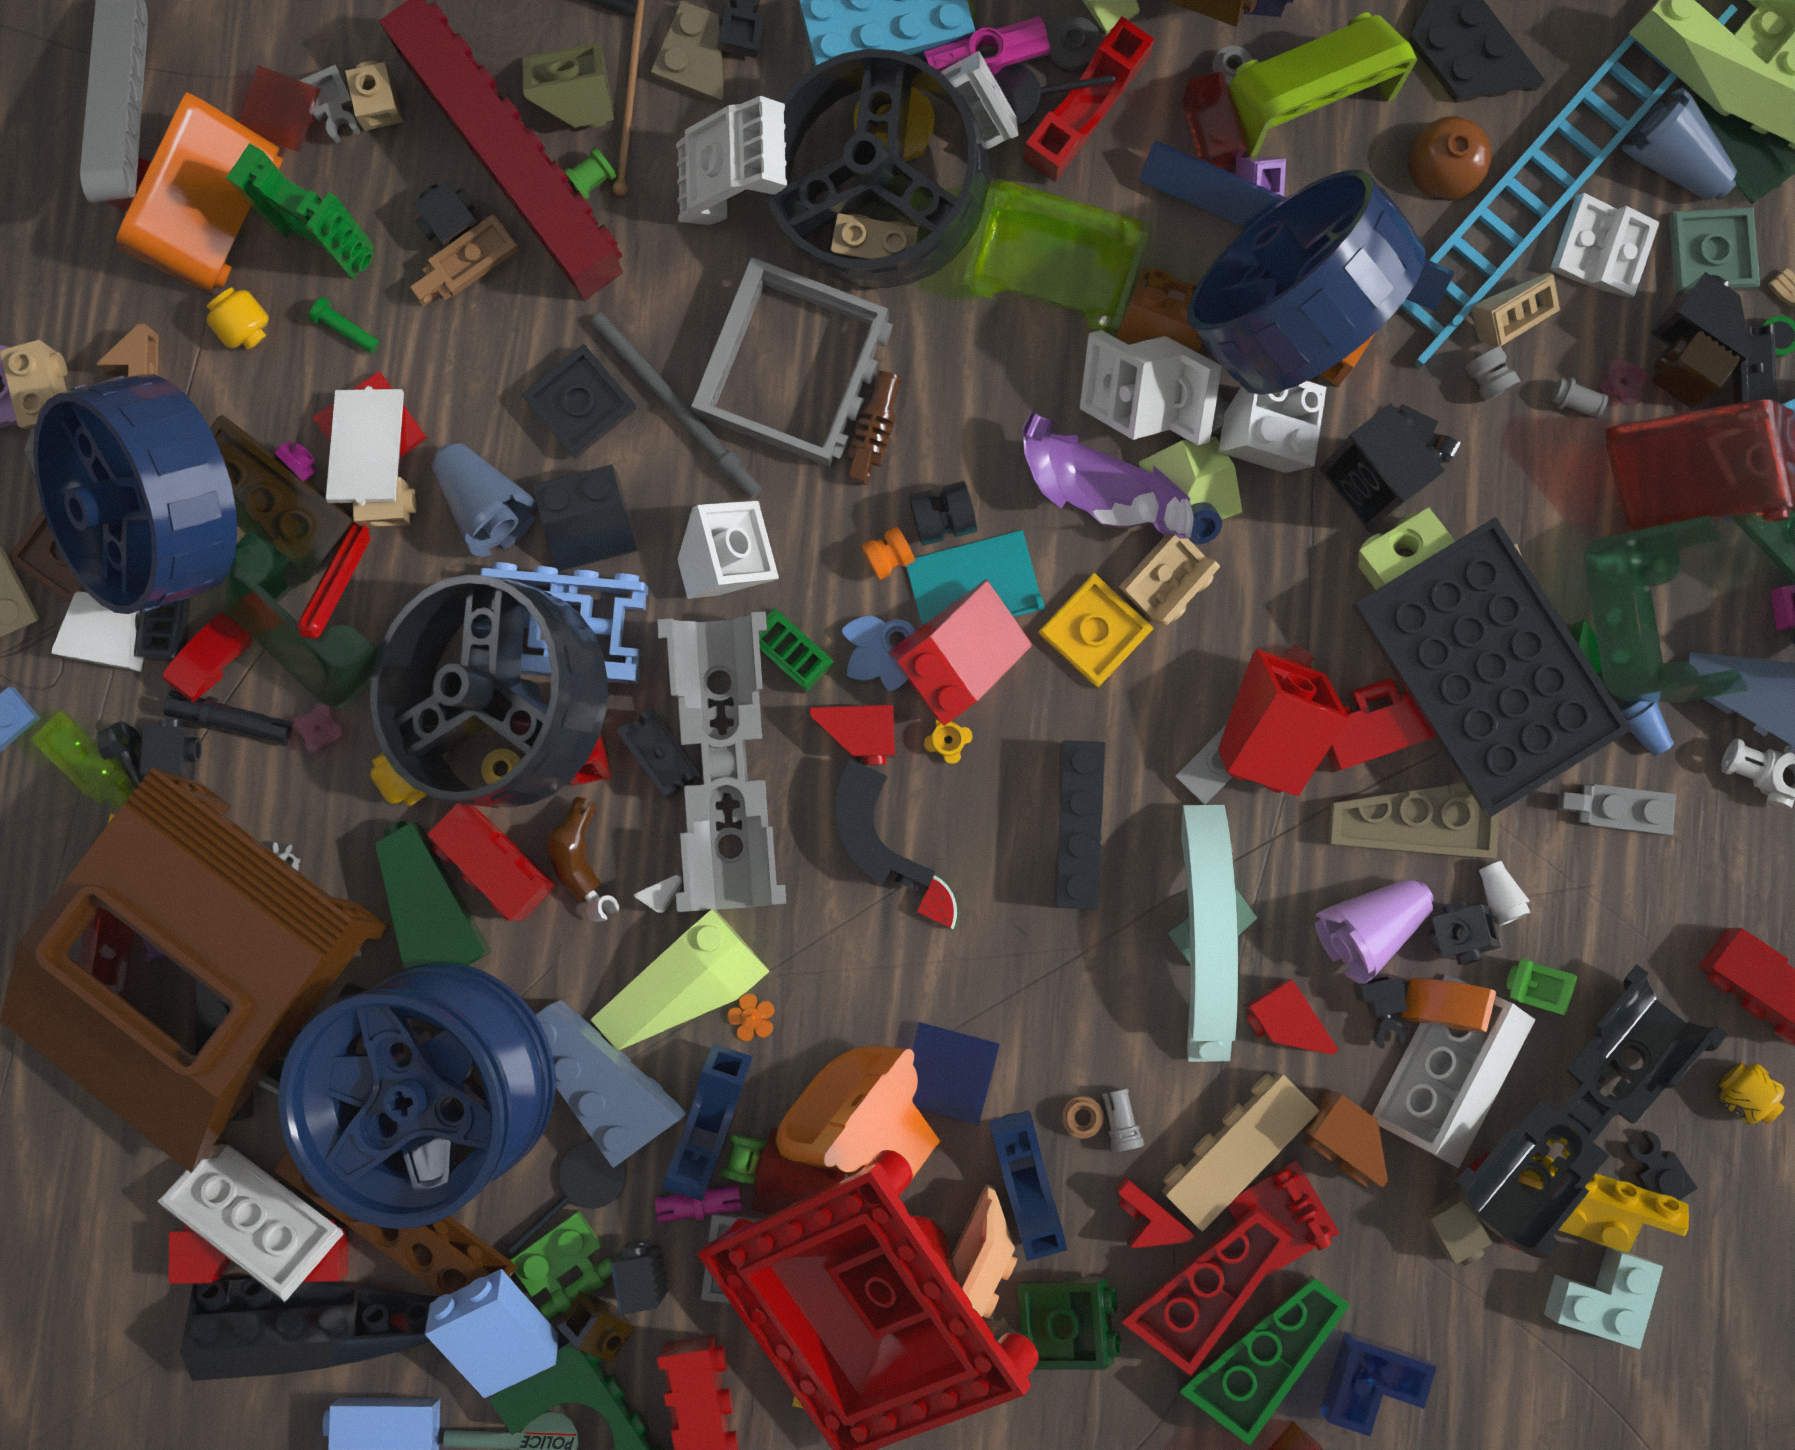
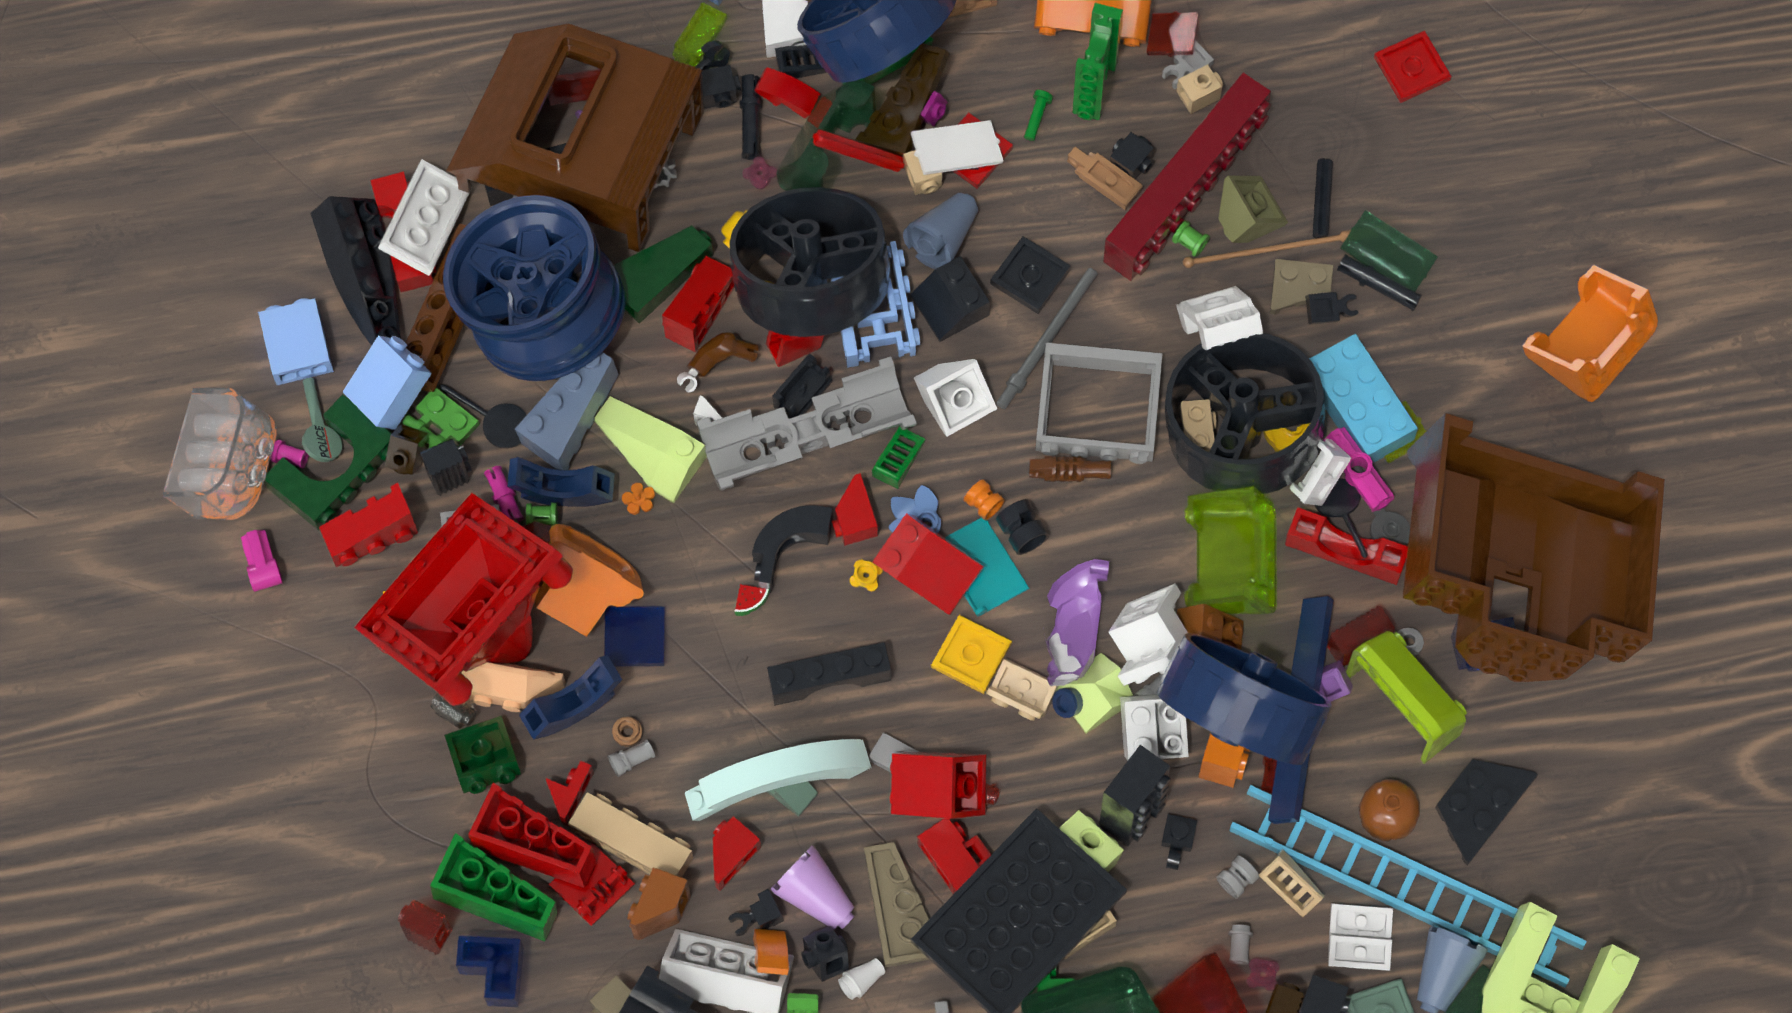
camera: 75 degrees right, 15 degrees down
(237, 319) = (1020, 47): yellow head -> none

